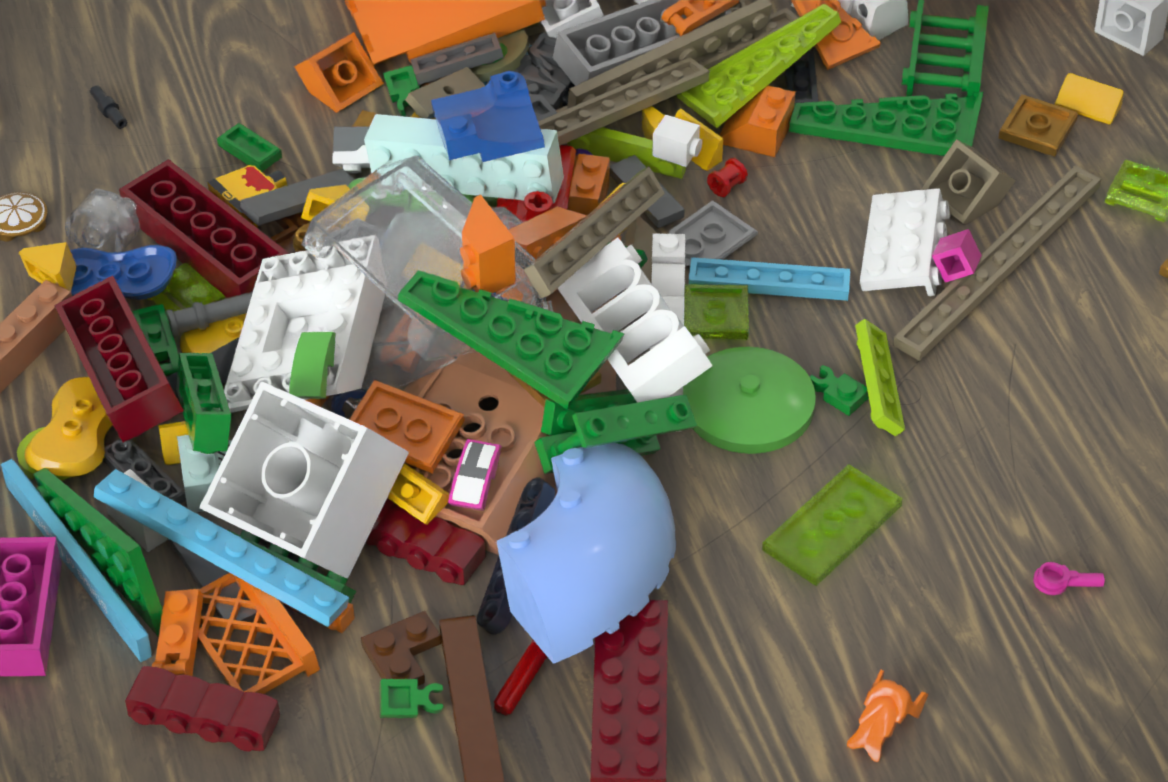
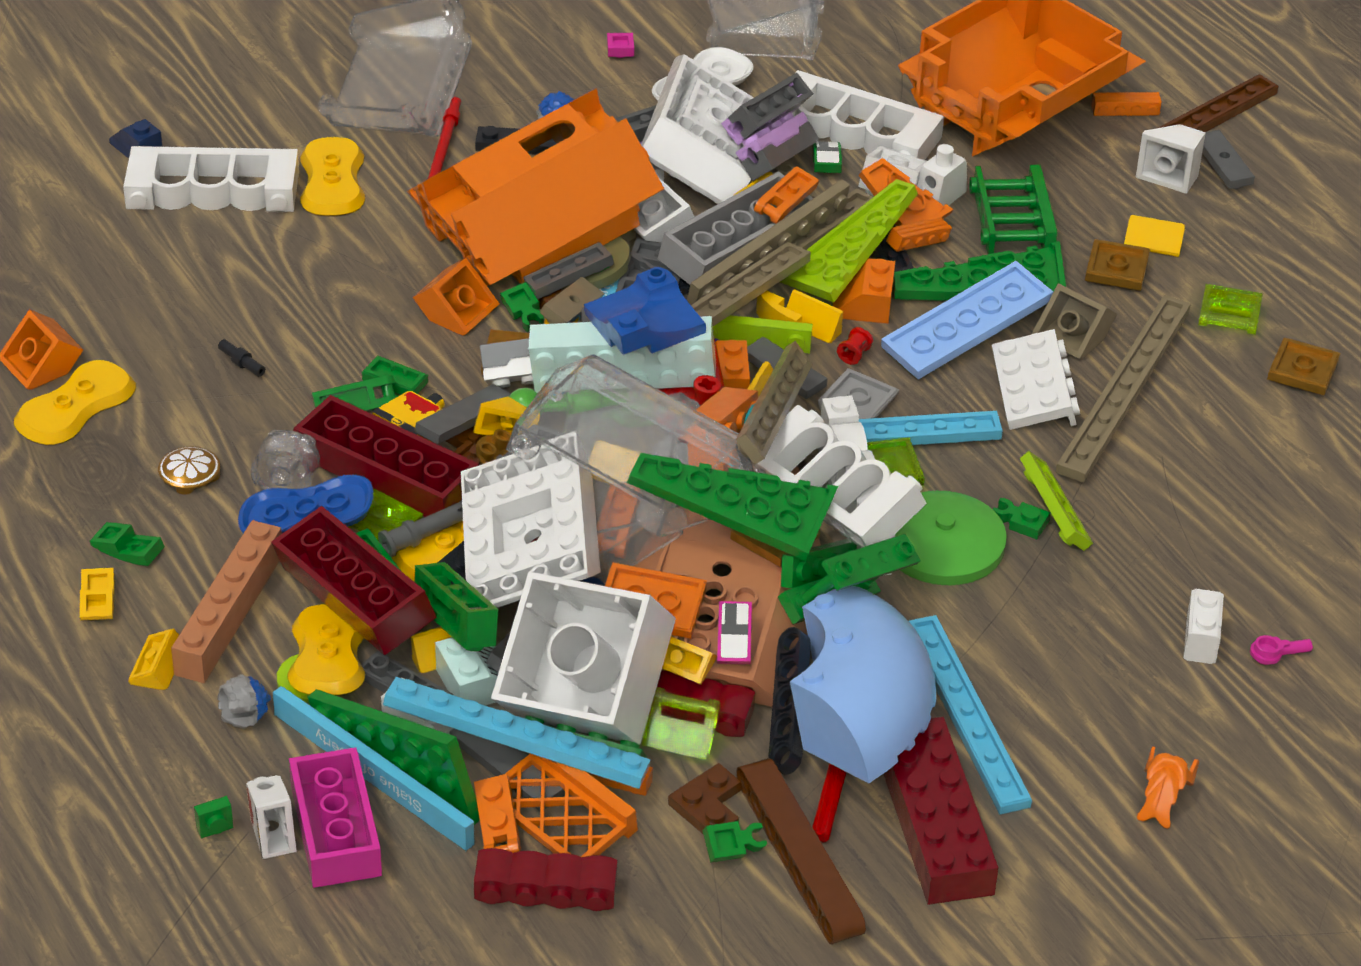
camera: 15 degrees left, 5 degrees down
(50, 263) = (245, 505): yellow slope -> none
(205, 163) = (360, 393): none -> green plate
(311, 364) = (561, 550): bright green slope -> none
(393, 573) = (677, 734): none -> clear neon green plate
(487, 250) = (700, 425): orange slope -> none
(676, 140) = (805, 317): white brick -> none
(706, 601) = (972, 720): none -> medium azure tile
(832, 524) = (1057, 634): clear neon green tile -> none
(835, 65) = (918, 234): none -> orange piece
(852, 165) = (966, 319): none -> light blue plate
(956, 256) = (1090, 385): dark pink brick -> none
(989, 541) = (1203, 626): none -> white brick

